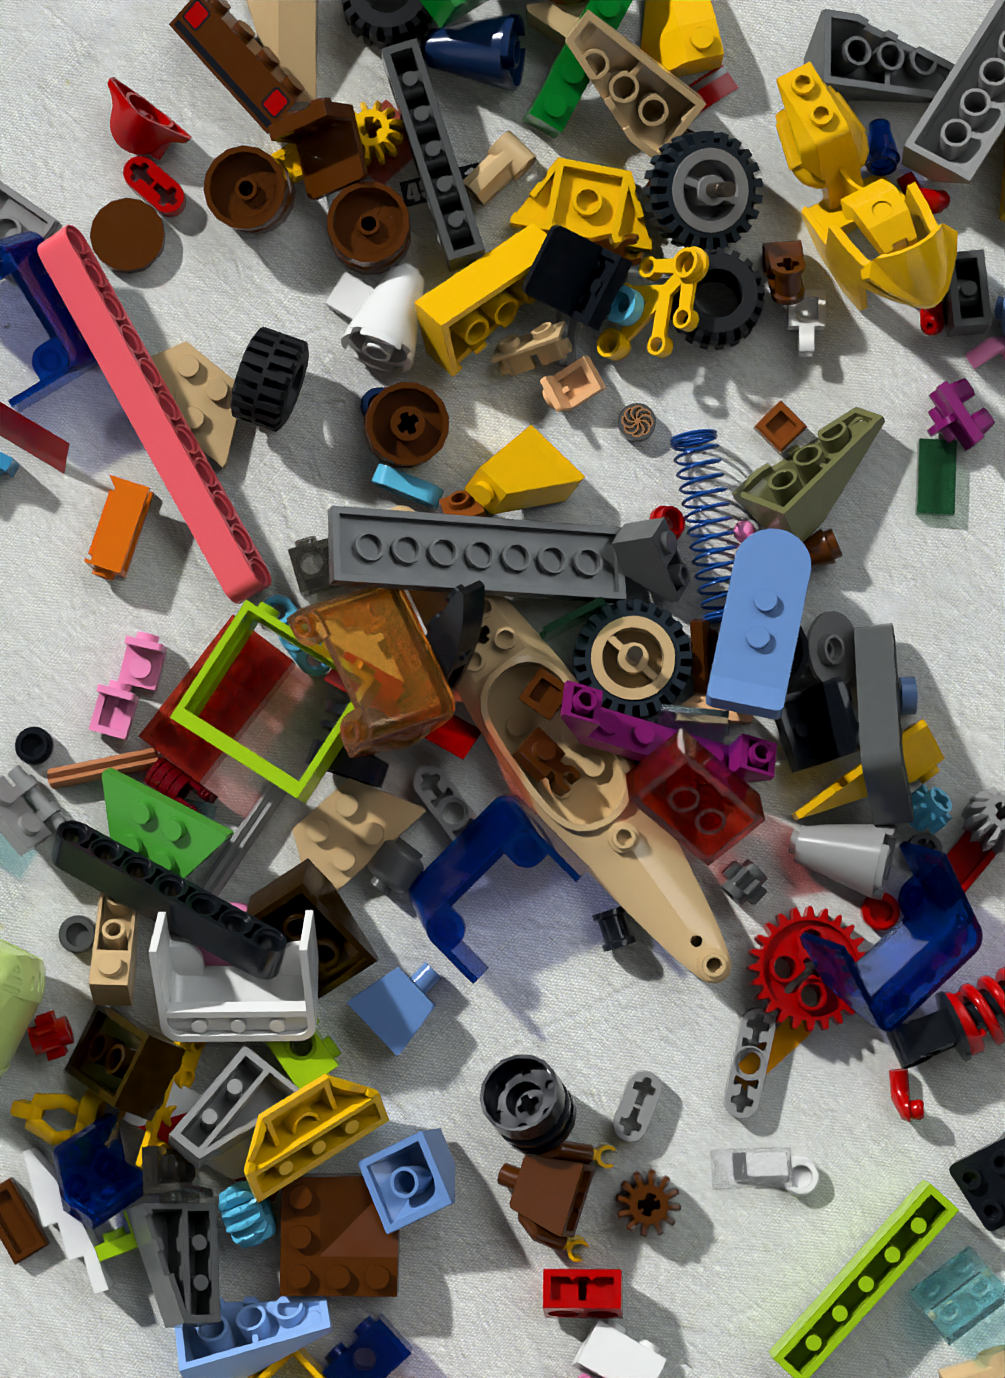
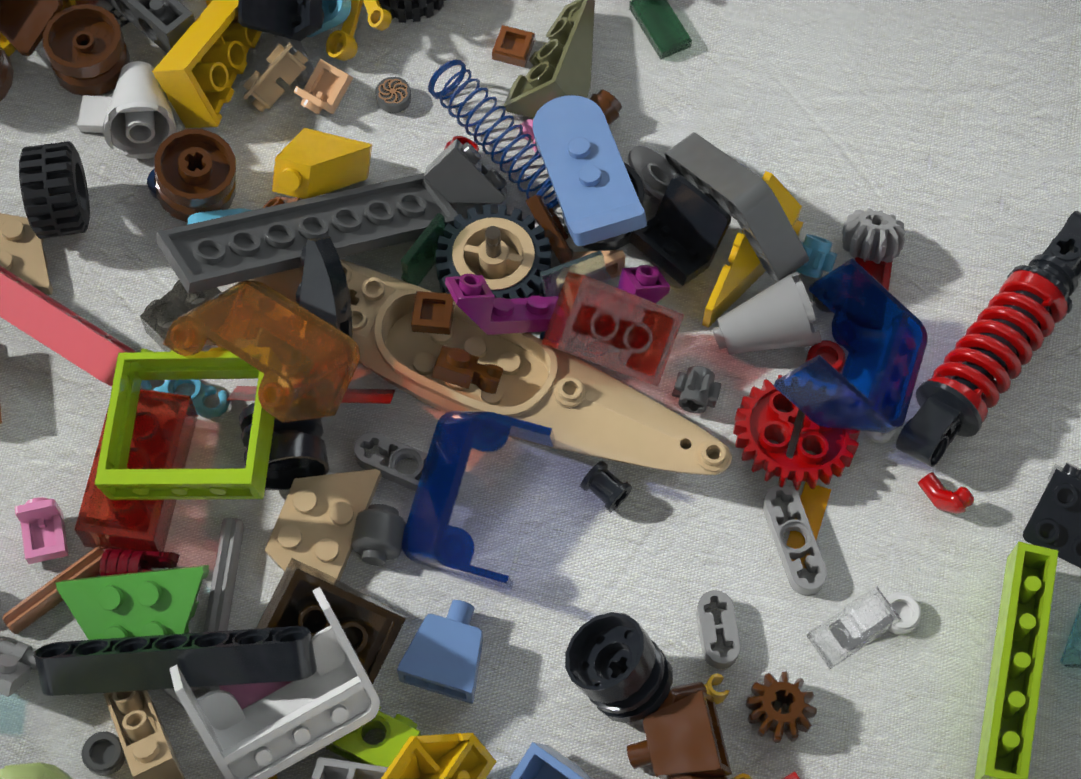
camera: 30 degrees left, 20 degrees down
(143, 661) = (51, 475): bright pink bracket -> none

